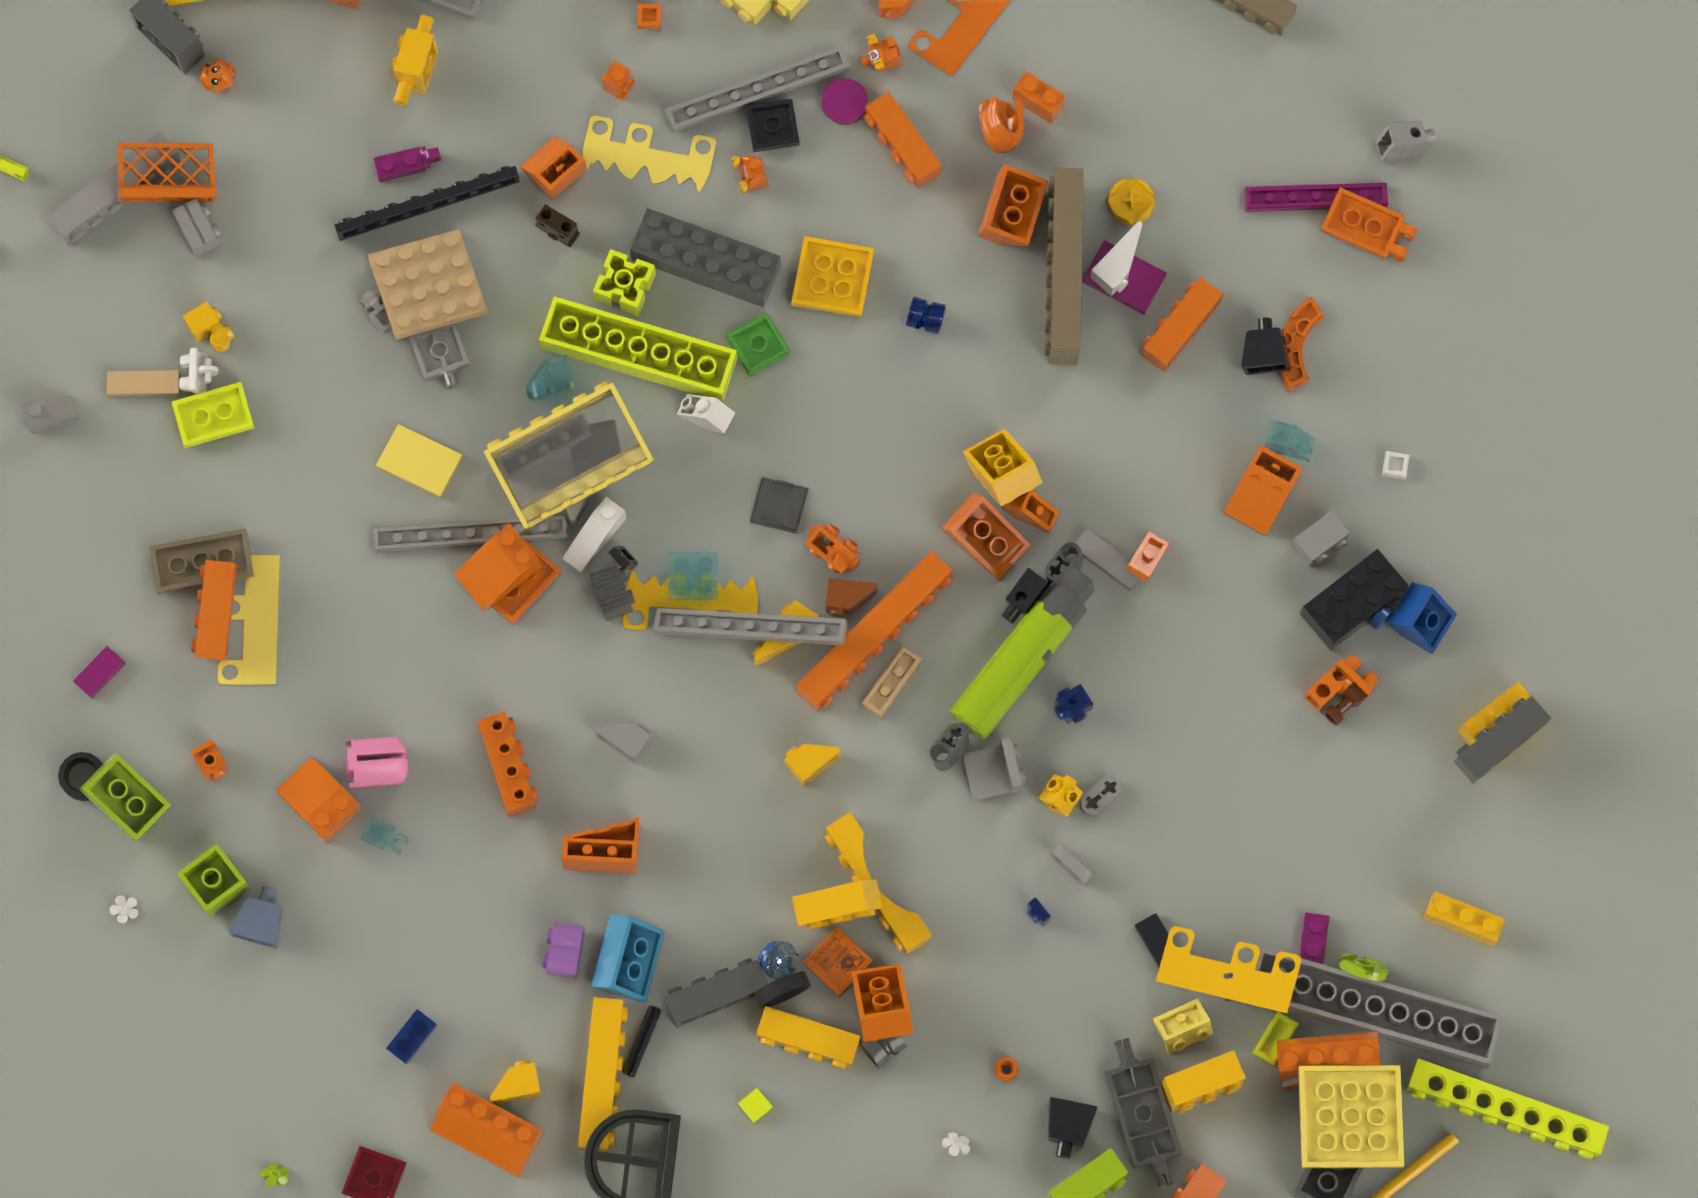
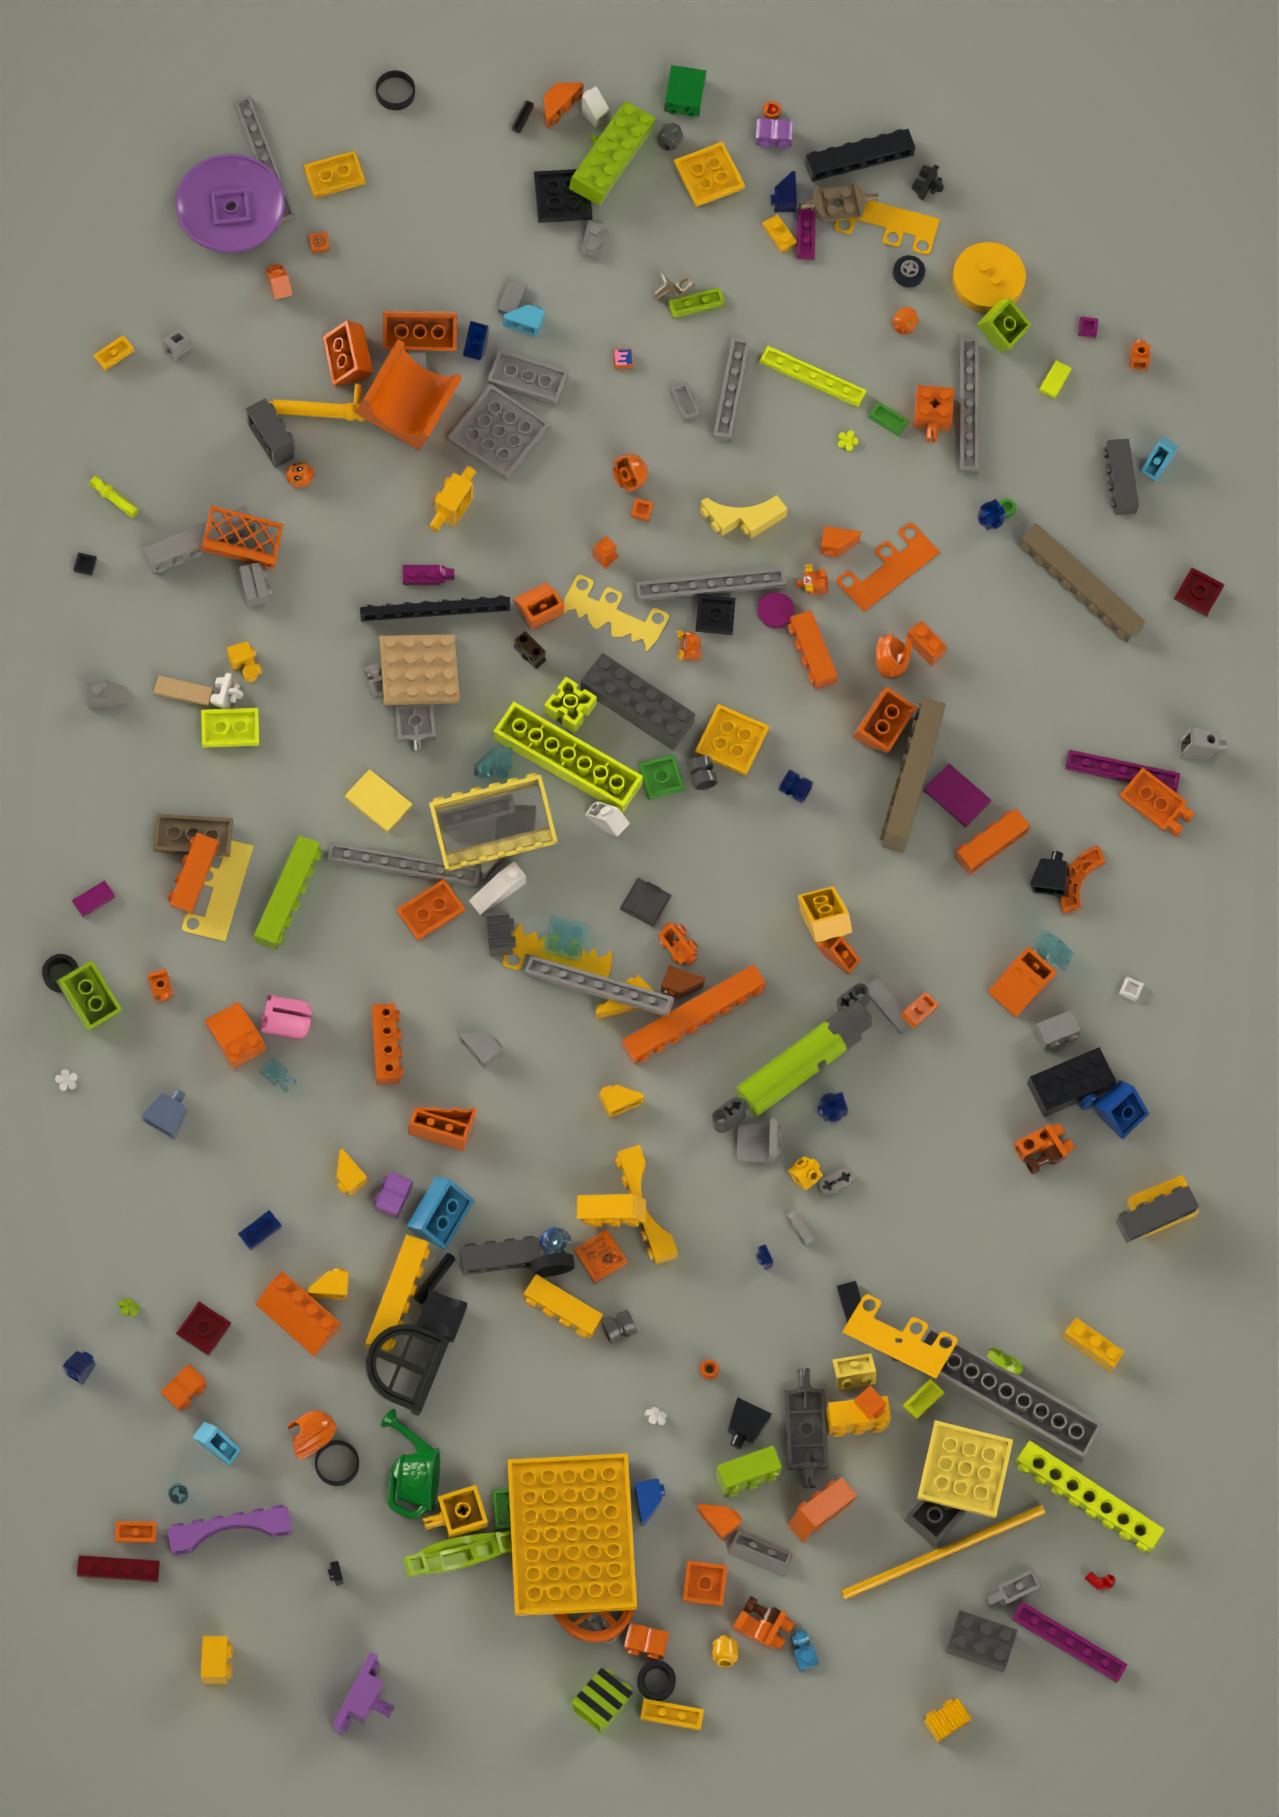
camera: 10 degrees right, 5 degrees down
(213, 880) = (139, 1074): lime brick -> none
(337, 603) = (287, 892): none -> lime brick
(498, 567) = (417, 894): orange slope -> none
(503, 939) = (349, 1175): none -> yellow slope
(623, 558) = (515, 911): black tile -> none
(663, 1087) = (442, 1315): none -> black brick
(755, 1105) = (509, 1348): neon yellow tile -> none
(809, 329) = (703, 772): none -> dark grey wheel
(882, 1002) = (626, 1293): orange brick -> none
(891, 682) = (697, 1056): tan tile -> none
(985, 535) = (798, 964): orange slope -> none
(1029, 585) = (821, 1008): black torso -> none
(1114, 268) = (951, 785): white slope -> none
(1131, 201) = (978, 739): yellow tile -> none
(1217, 1066) = (870, 1403): none -> orange brick
(1314, 937) = (974, 1329): magenta plate -> none
(1331, 1050) = (960, 1415): orange slope -> none

